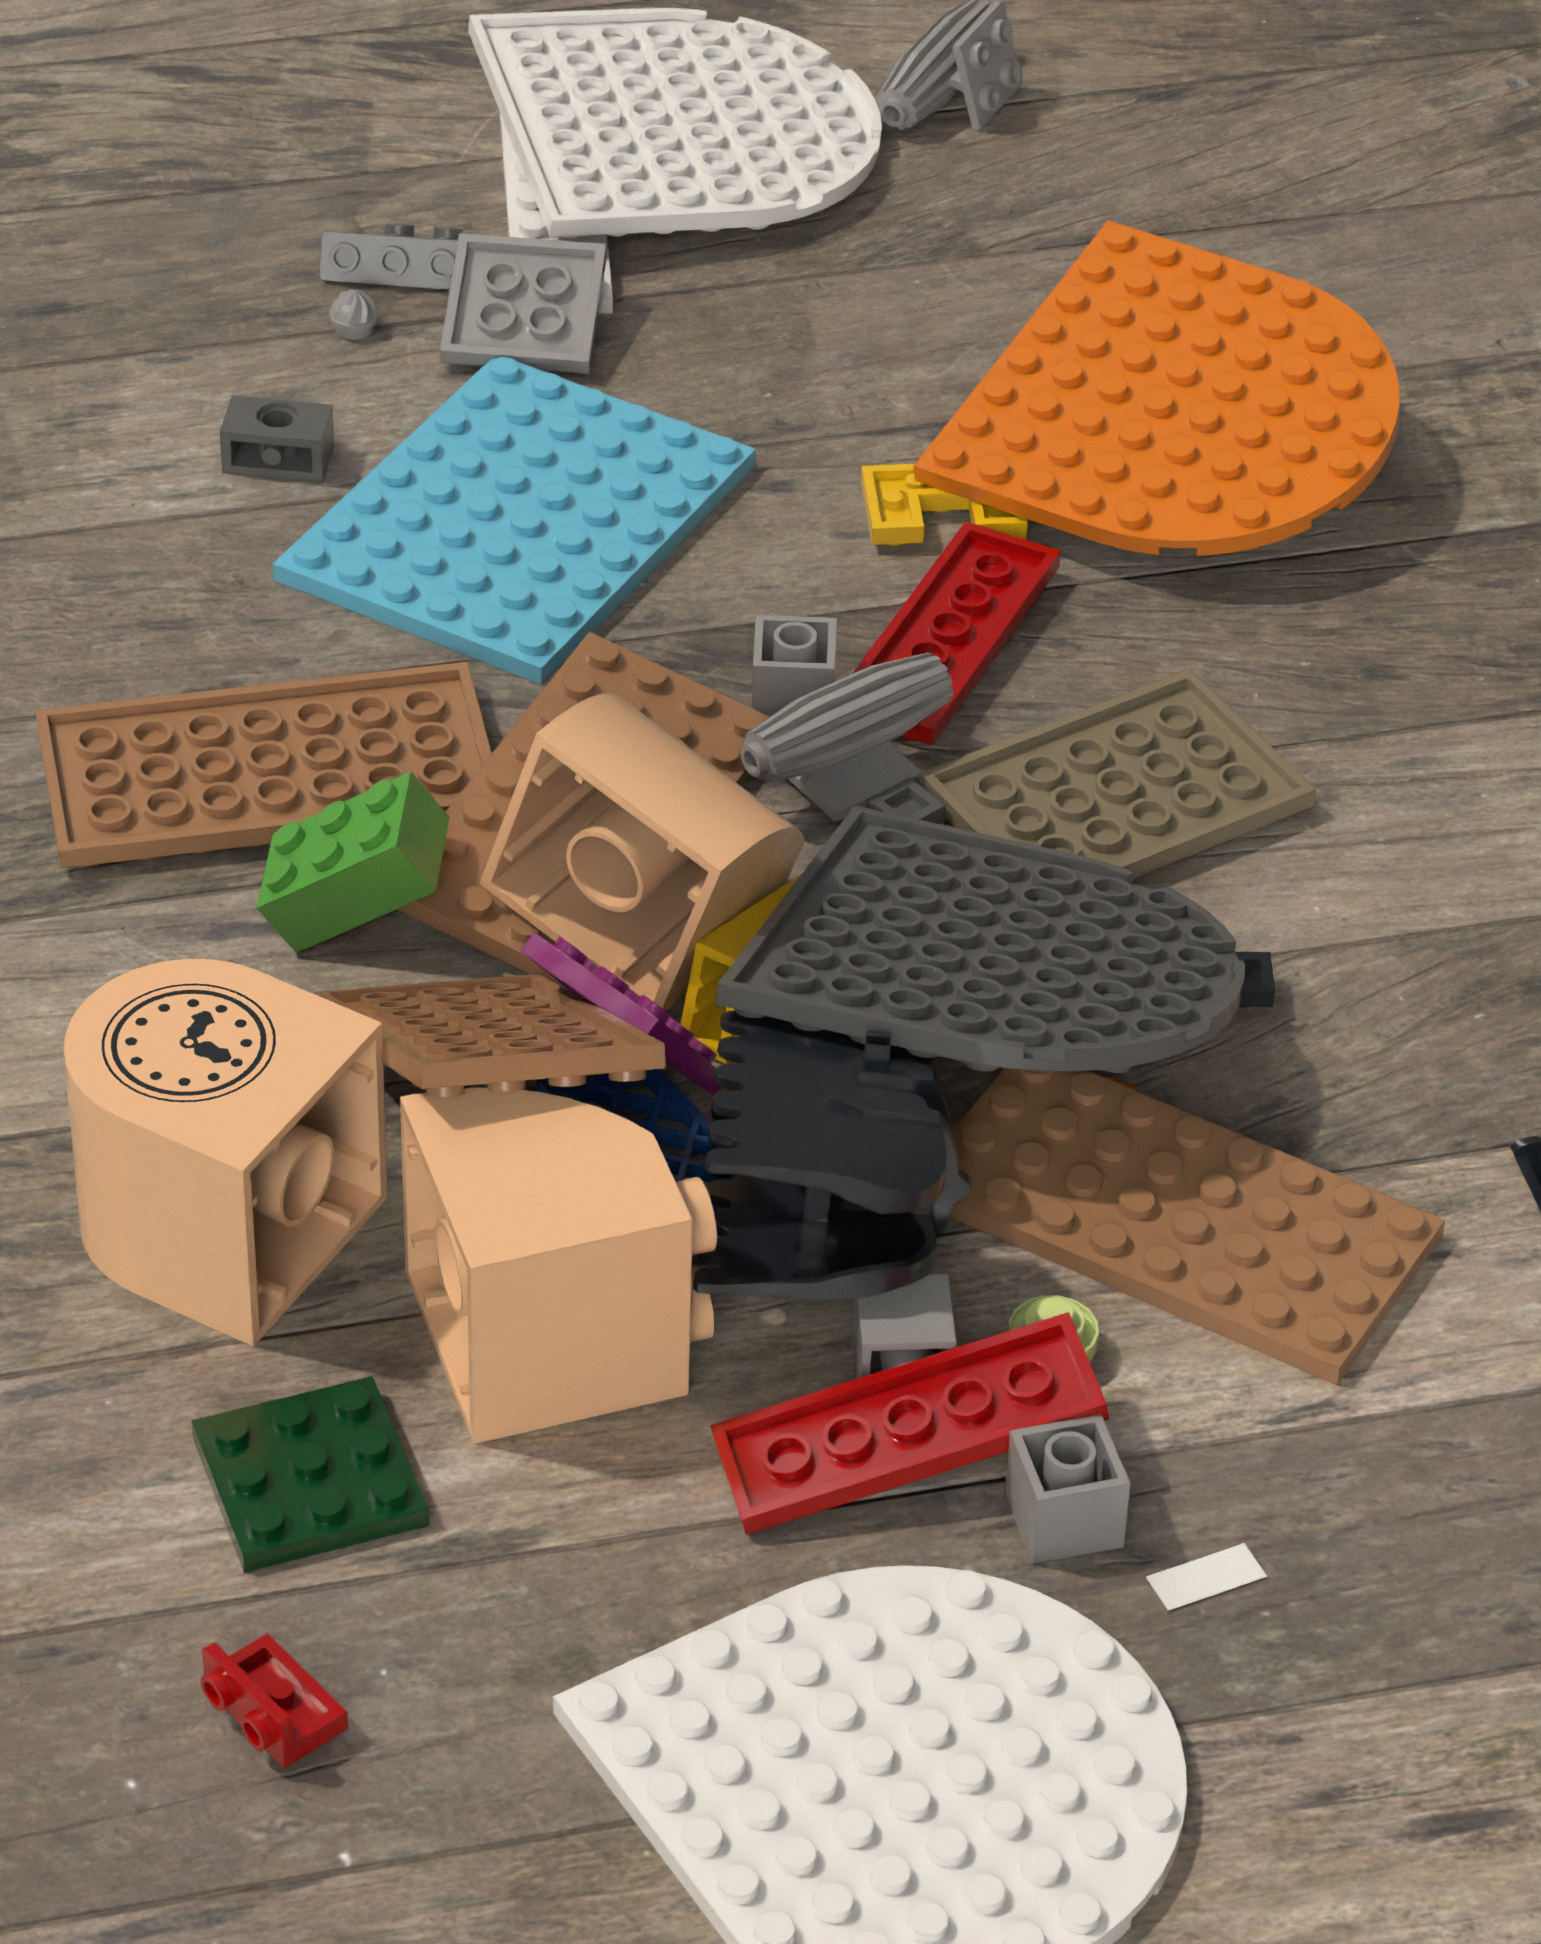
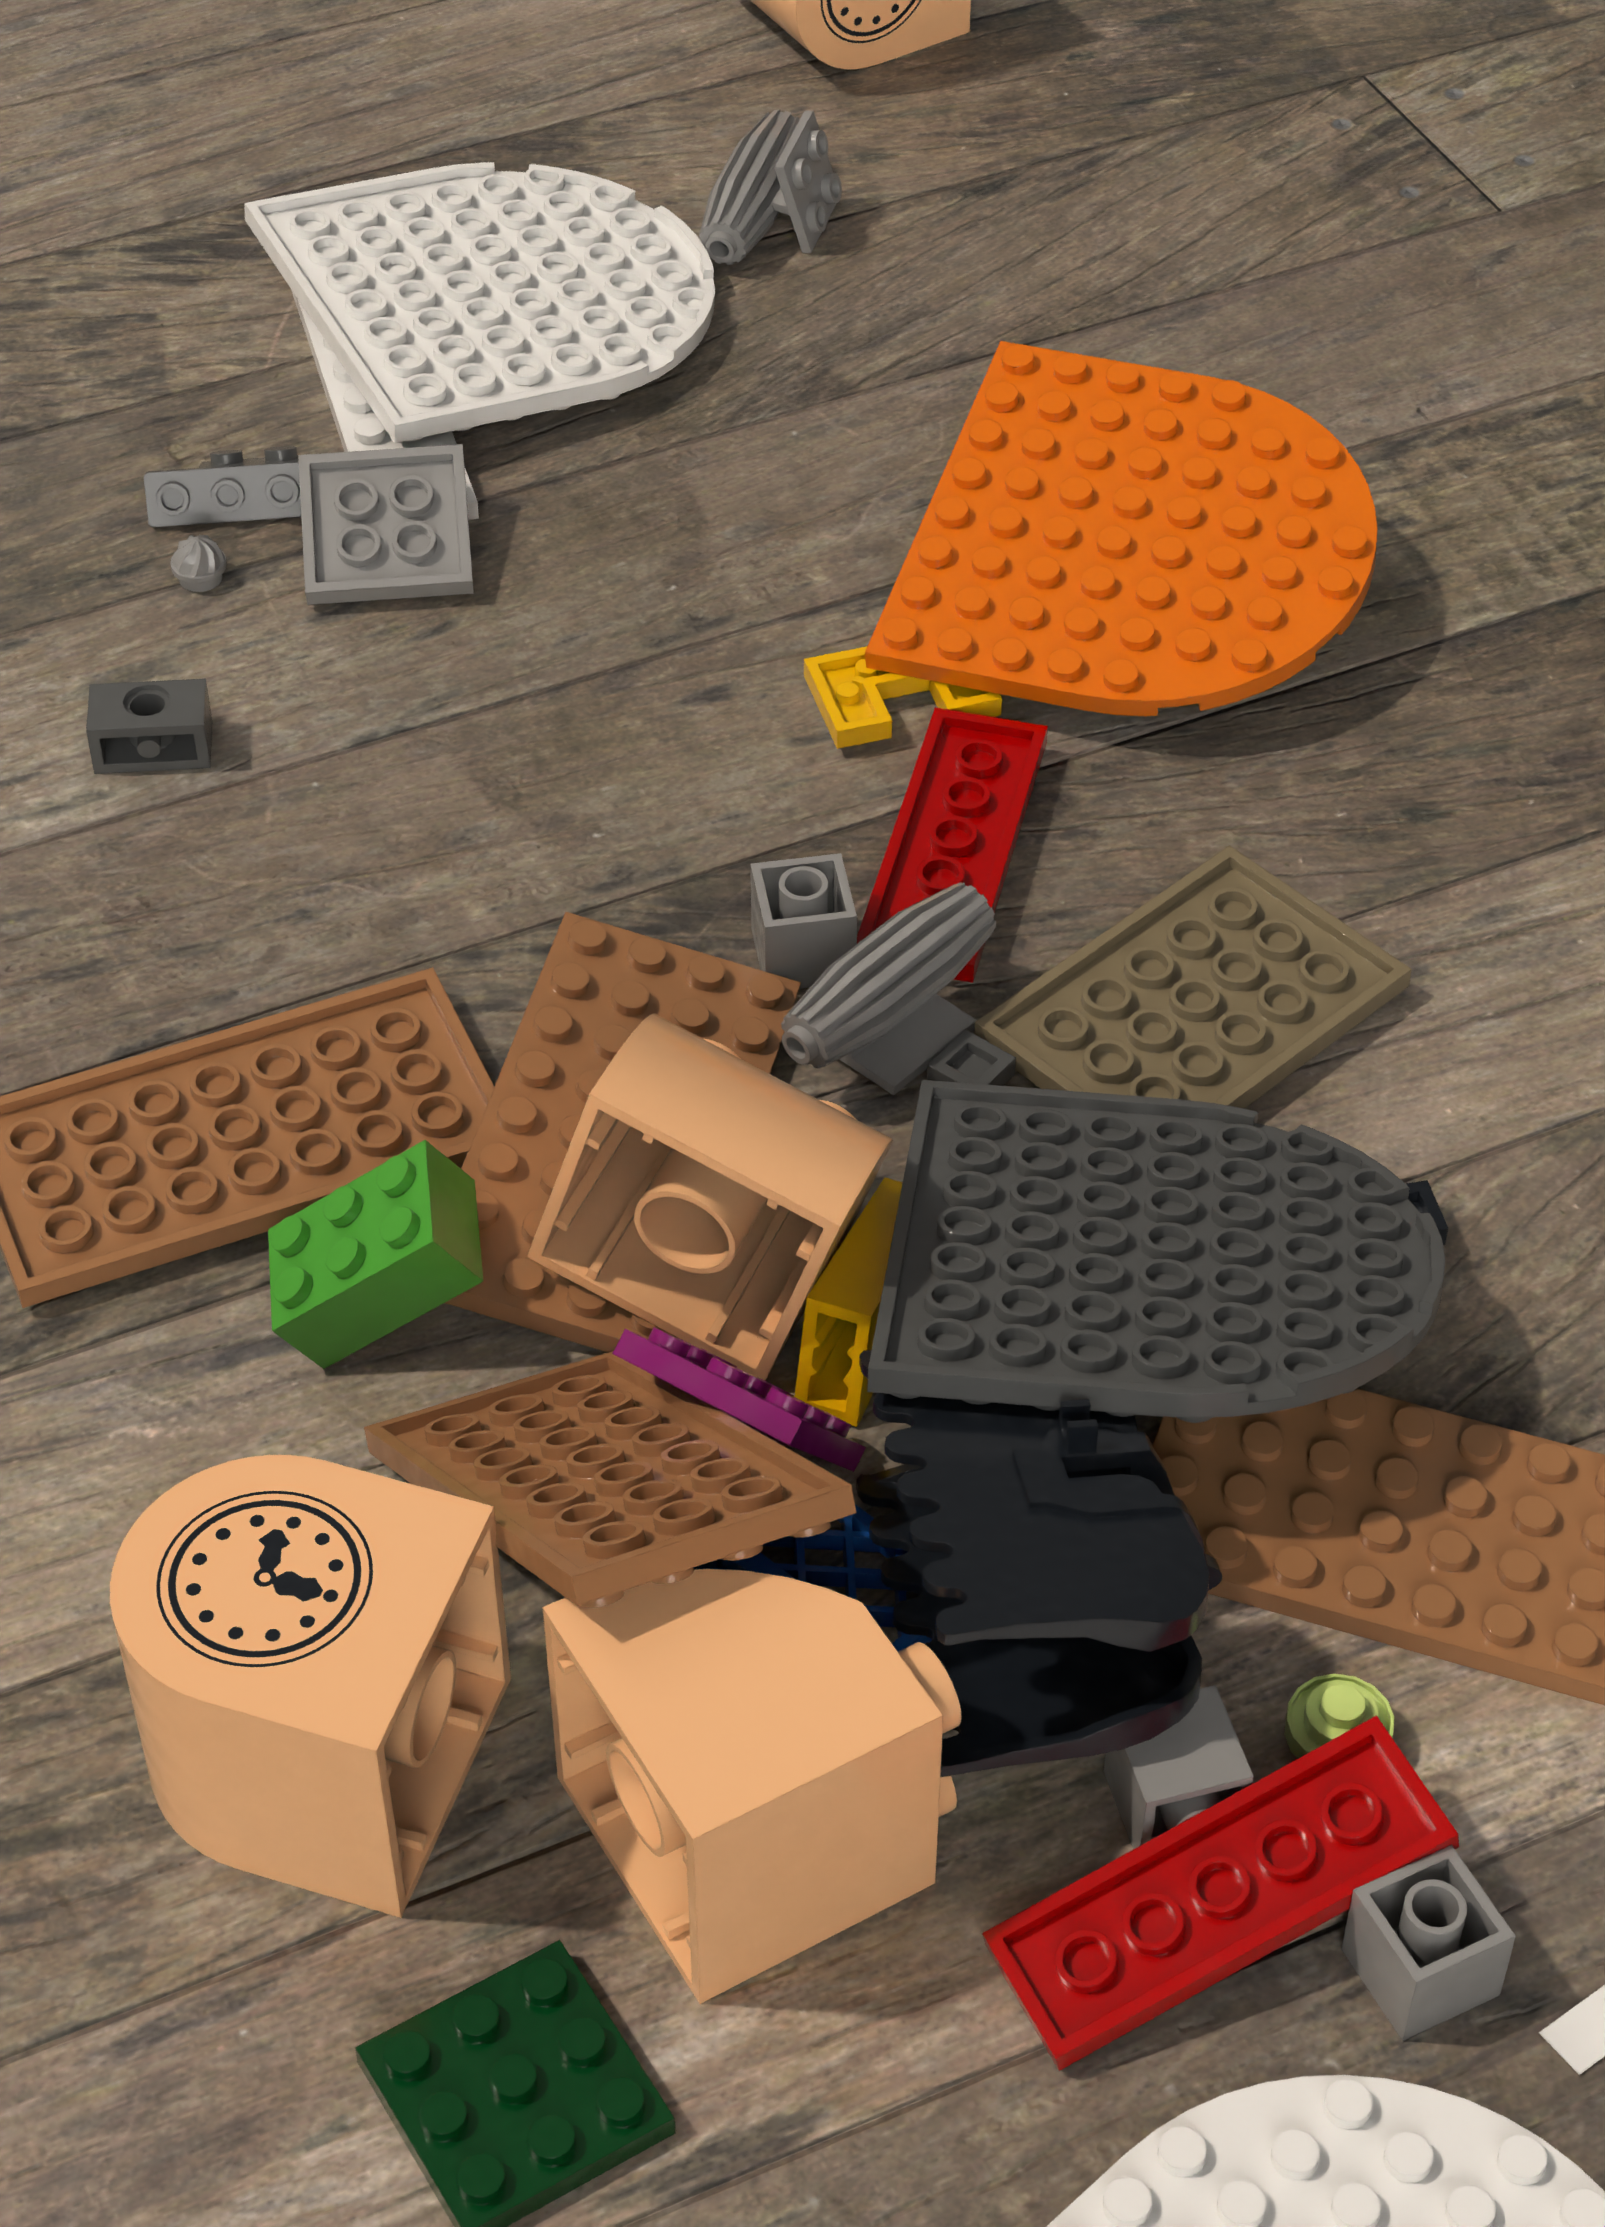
camera: 10 degrees left, 5 degrees up
(515, 517) = (436, 781): medium azure plate -> none

